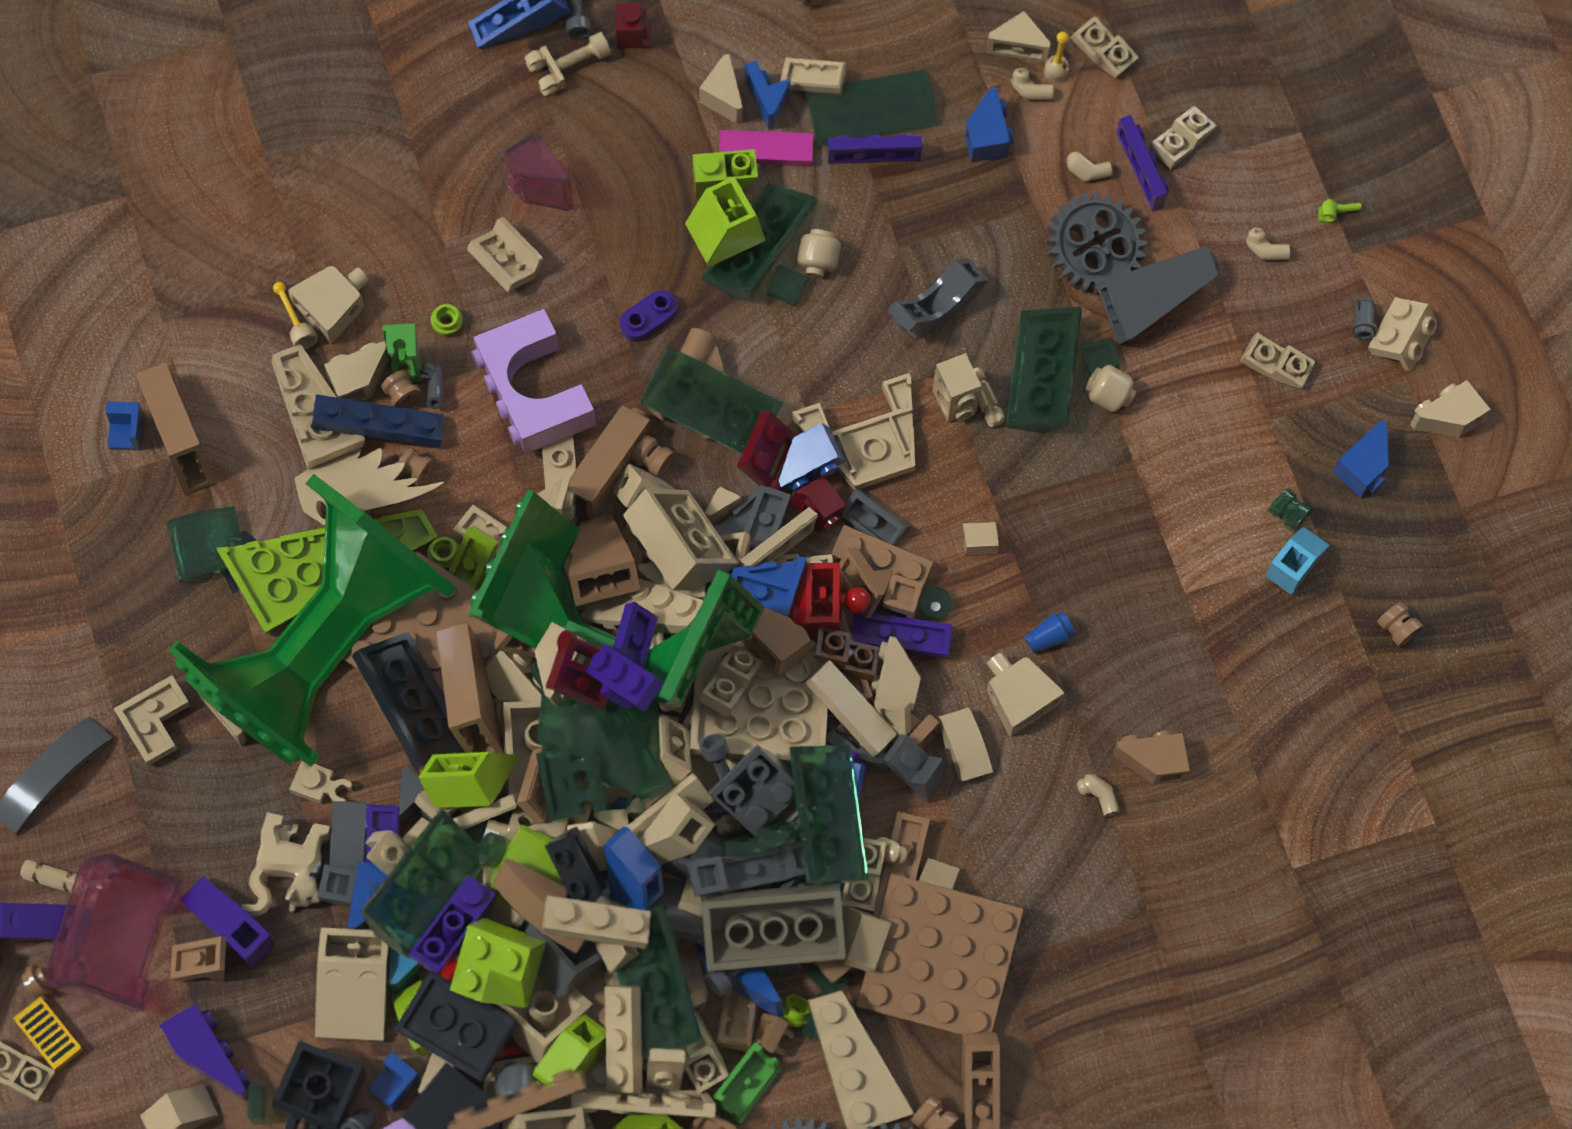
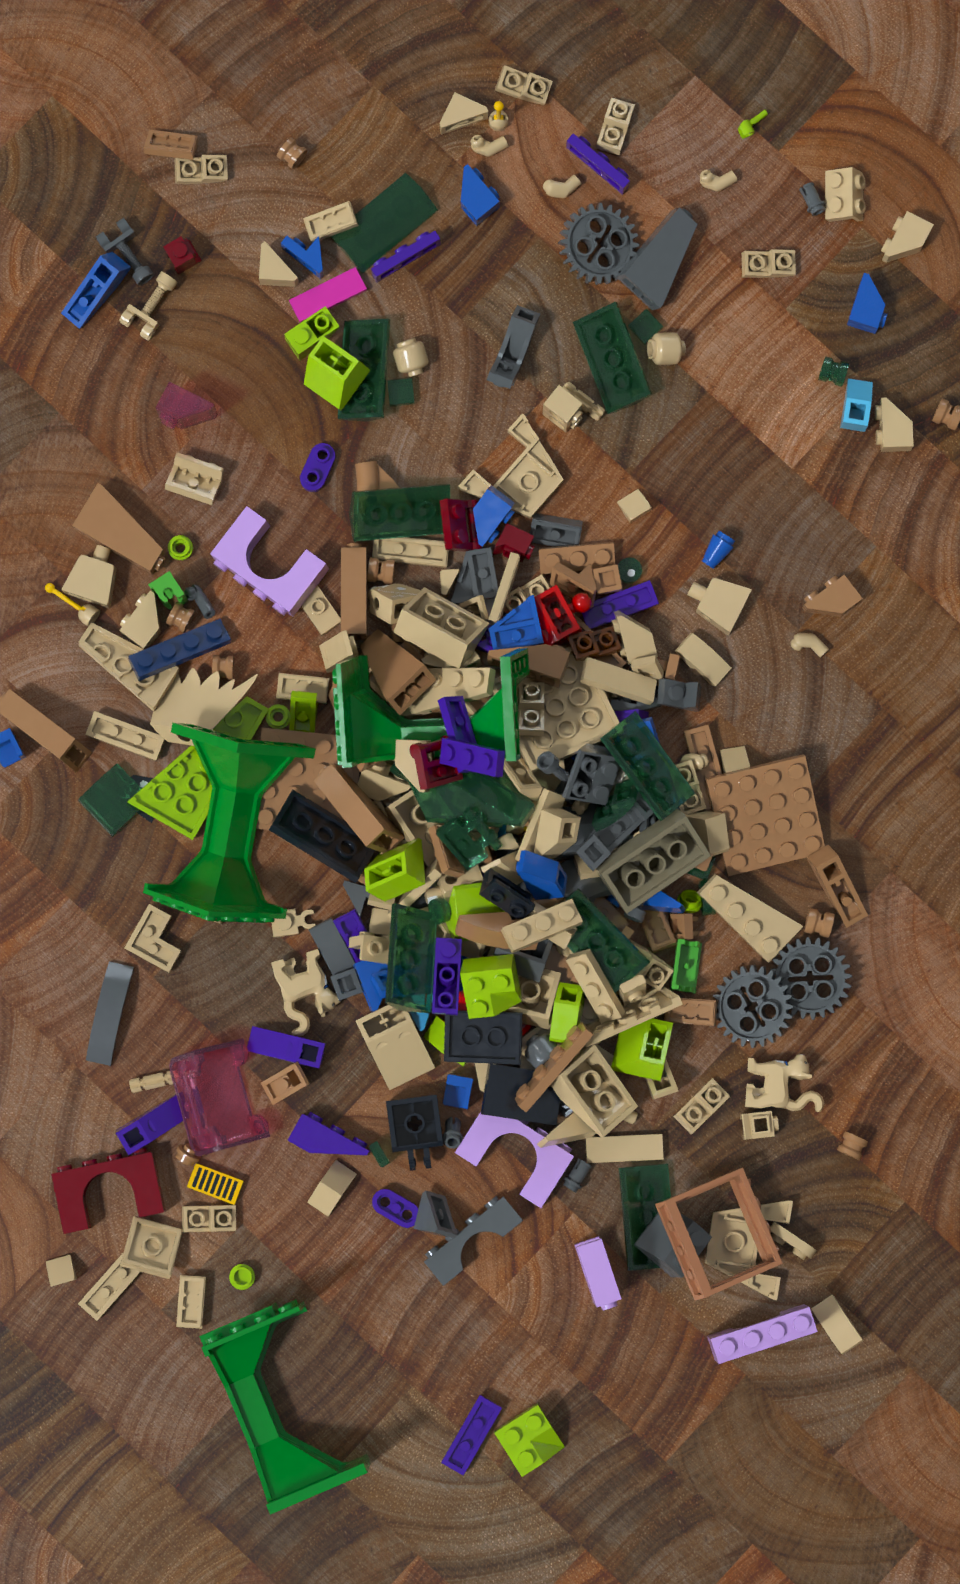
camera: 25 degrees left, 15 degrees up
(261, 482) = (125, 736): none -> tan plate
(385, 256) = (114, 528): none -> medium nougat slope
(700, 455) = (412, 551): none -> tan tile
(1330, 607) = (895, 428): none -> tan slope

